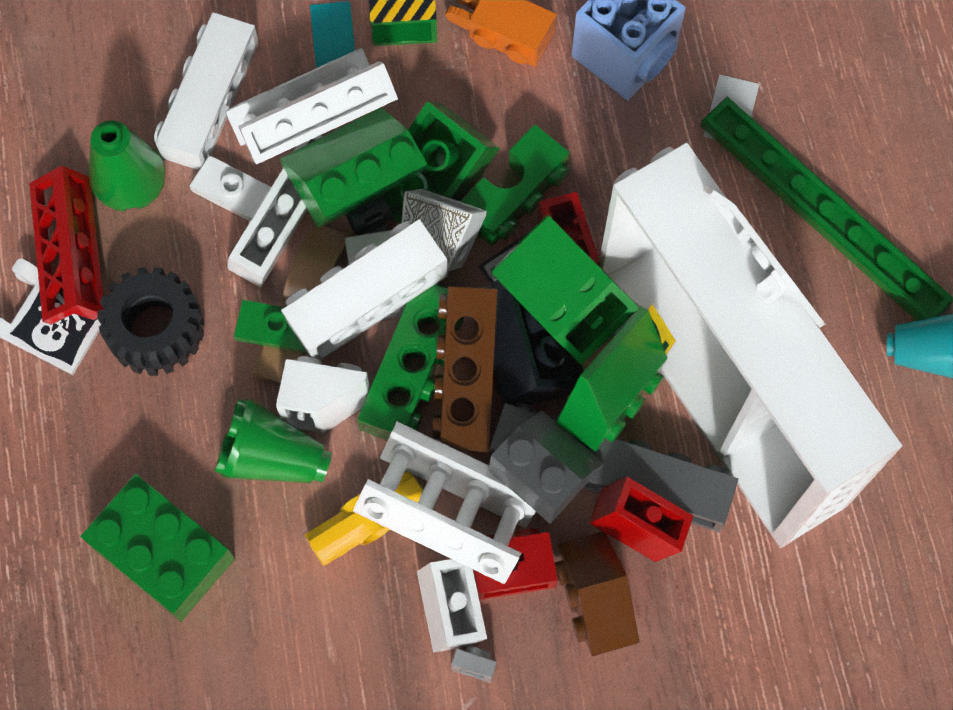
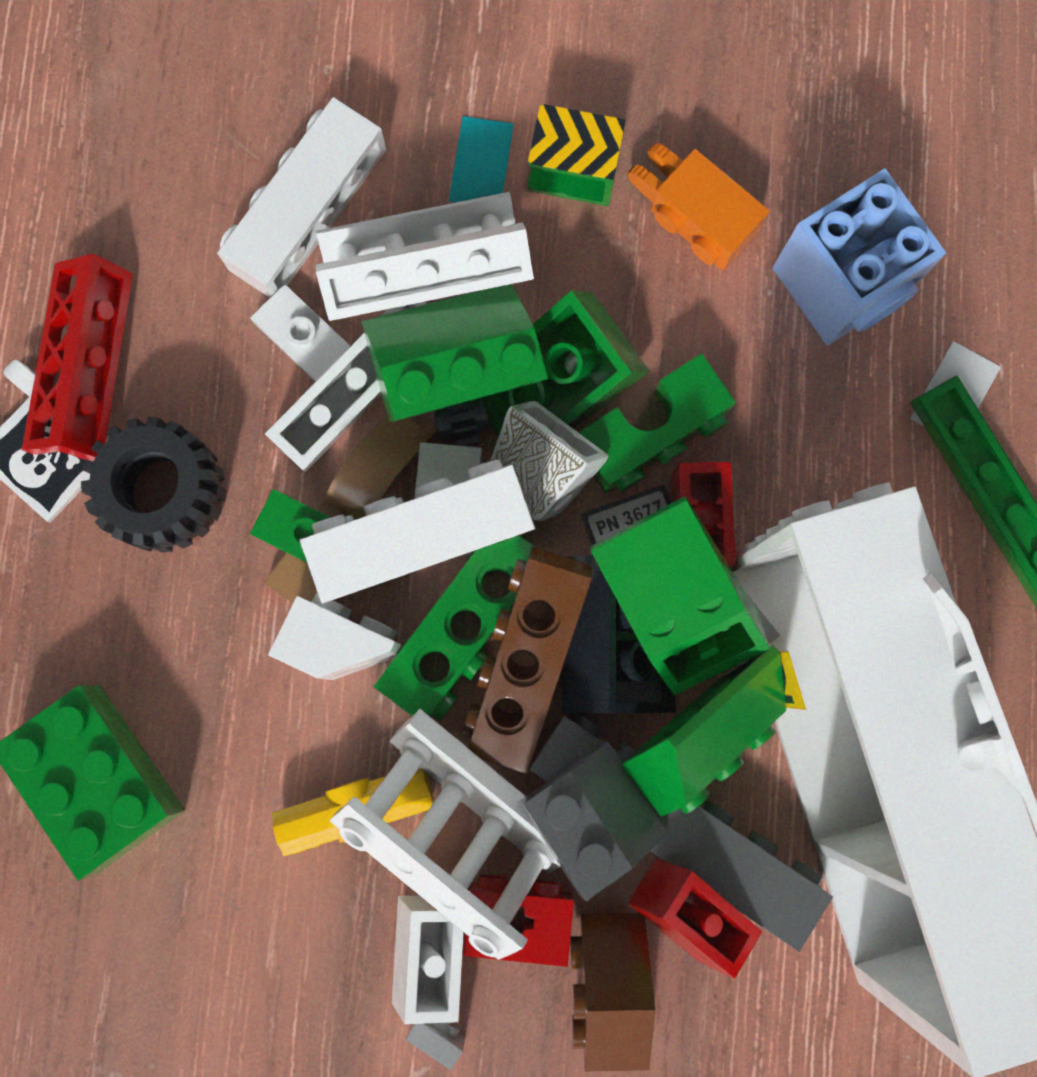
camera: 15 degrees right, 10 degrees up
(123, 167) = (172, 273): green cone -> none
(269, 448) = (255, 692): green cone -> none

